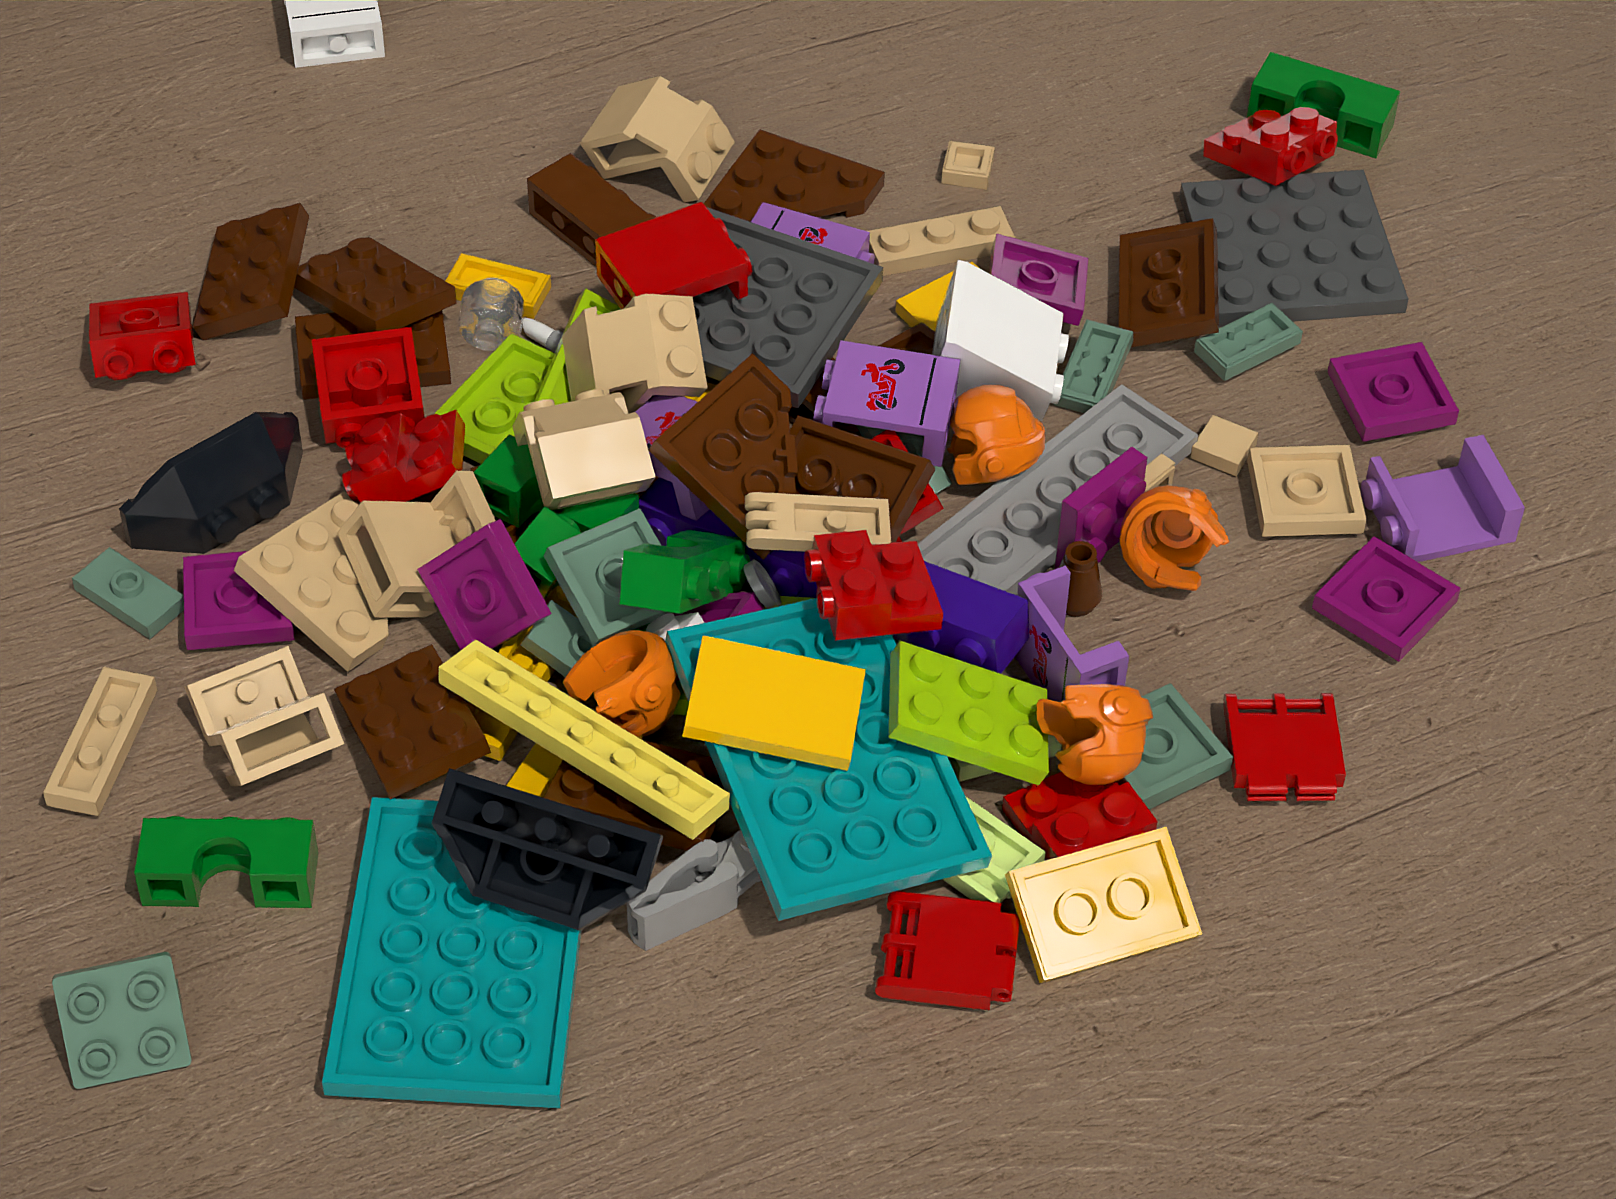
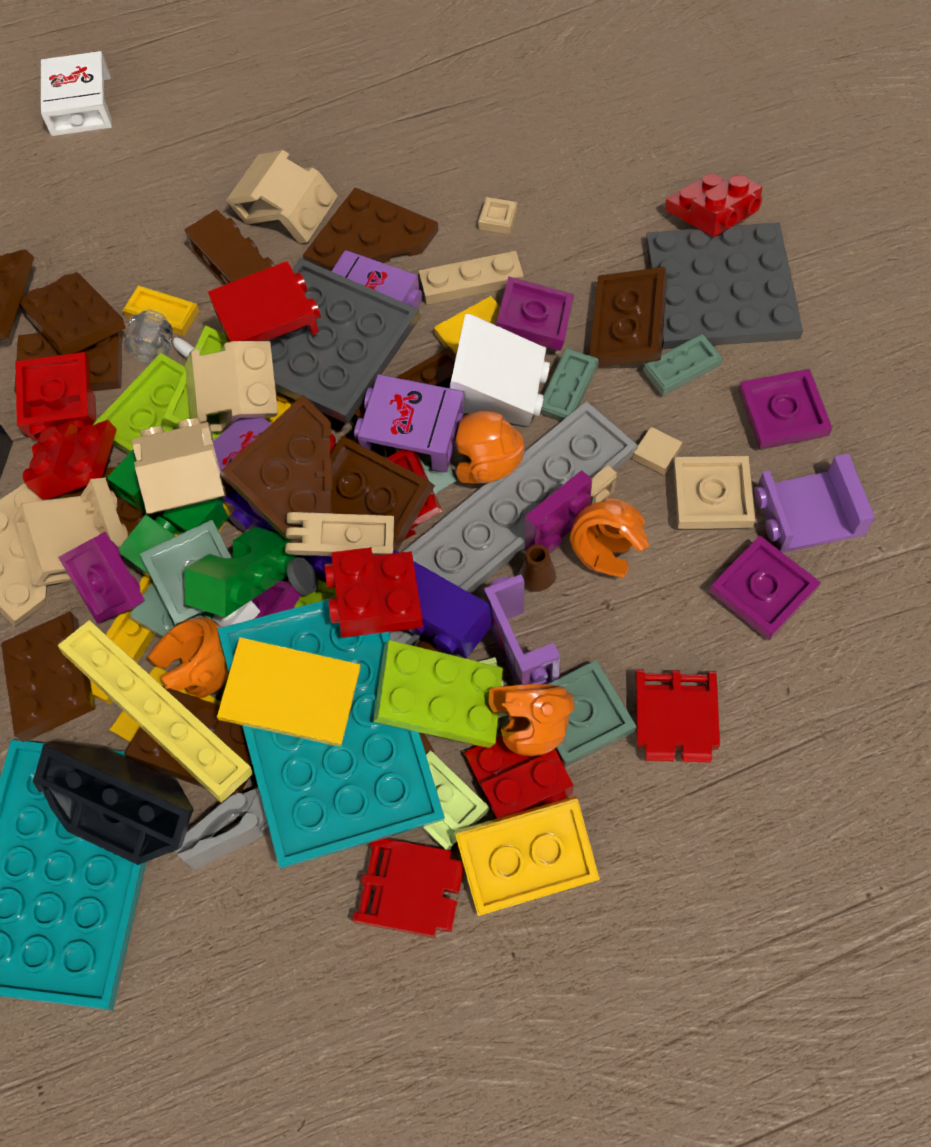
camera: 10 degrees right, 15 degrees up
(1360, 107) = (779, 170): green arch -> none

